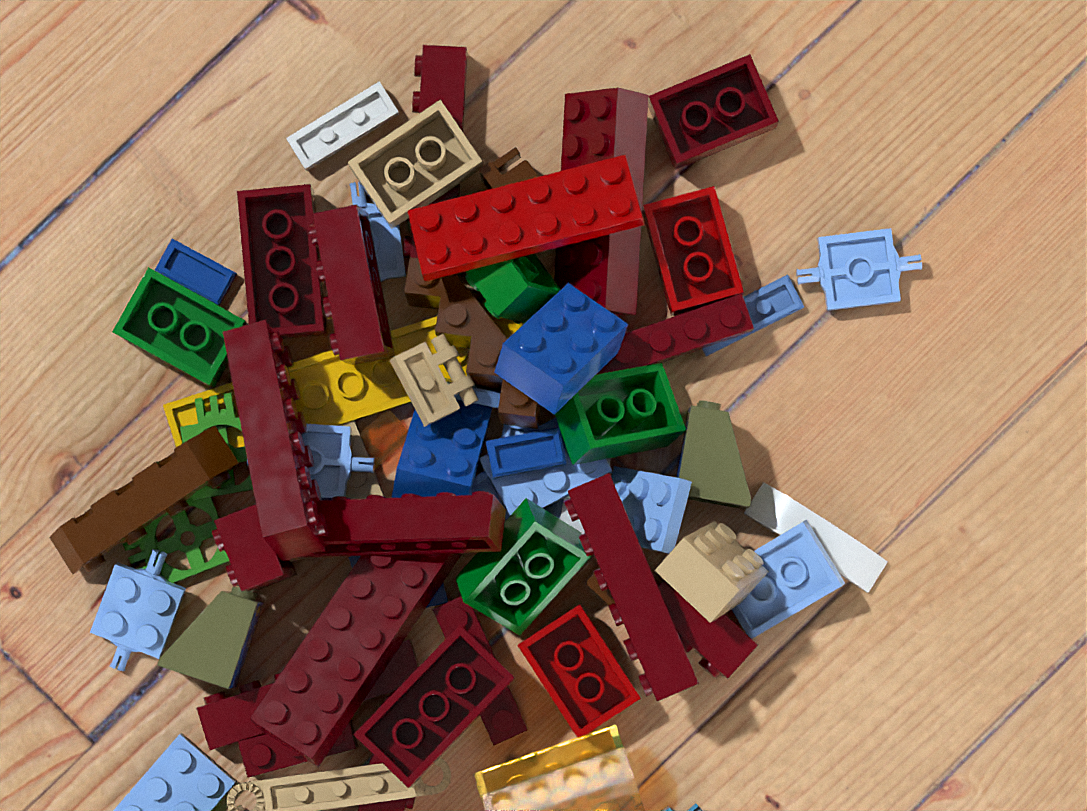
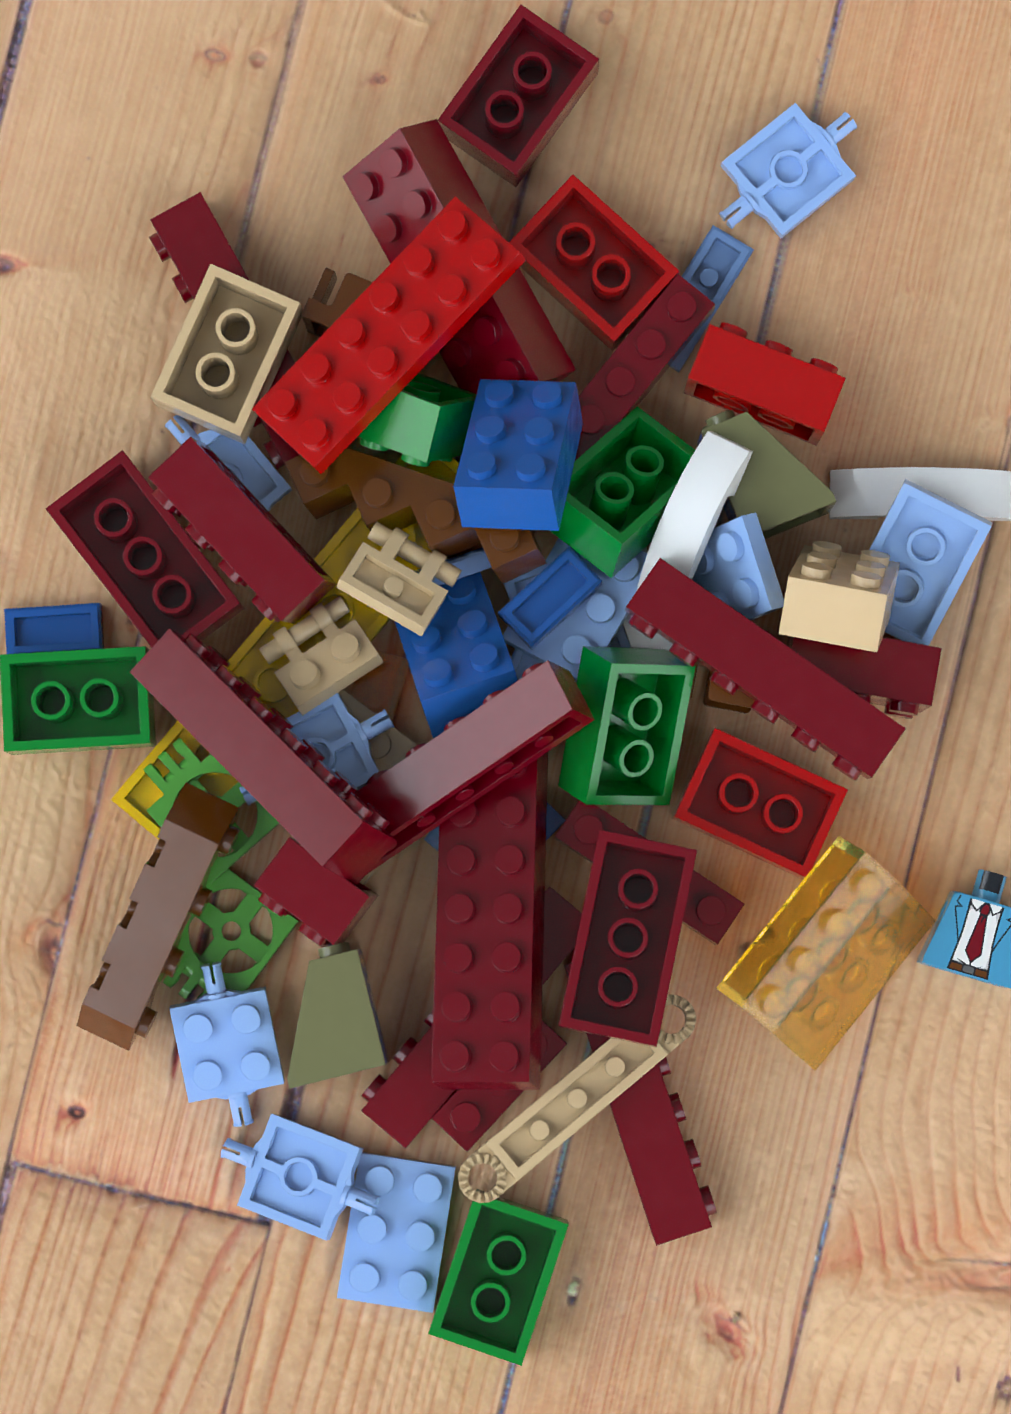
camera: 30 degrees left, 0 degrees up
(131, 725) = (300, 1176): none -> light blue plate
(342, 126) = (116, 366): white plate -> none
(355, 406) = (328, 665): none -> tan plate
(657, 452) = (696, 504): none -> white slope
(754, 398) = (765, 382): none -> red brick

